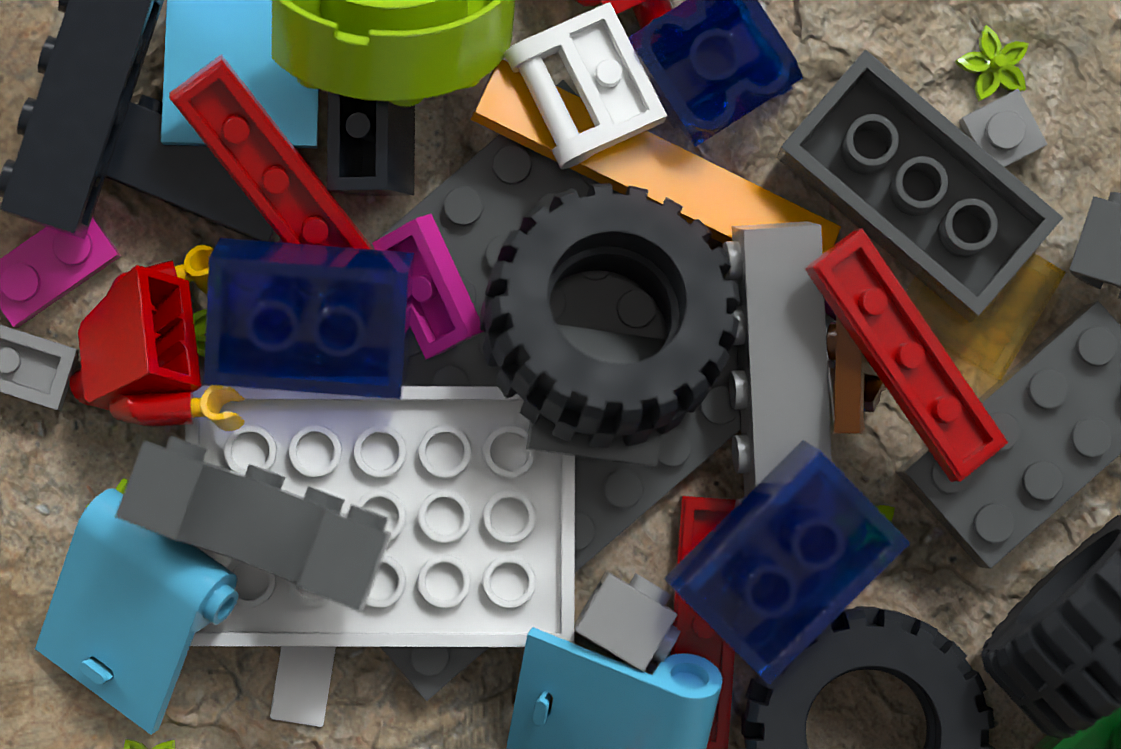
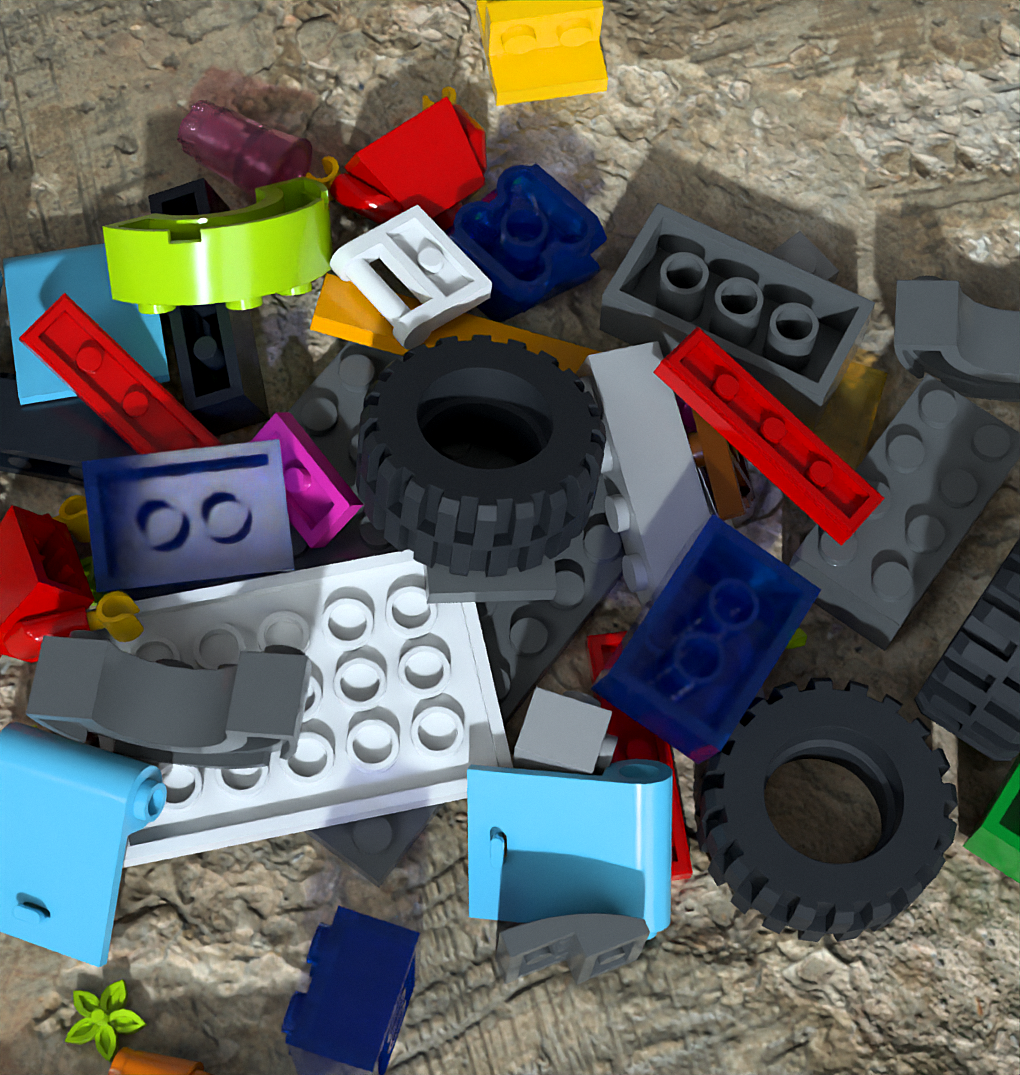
camera: 10 degrees left, 20 degrees down
(302, 684) = (248, 891): white sticker -> none
(994, 64) = (773, 219): lime plant -> none

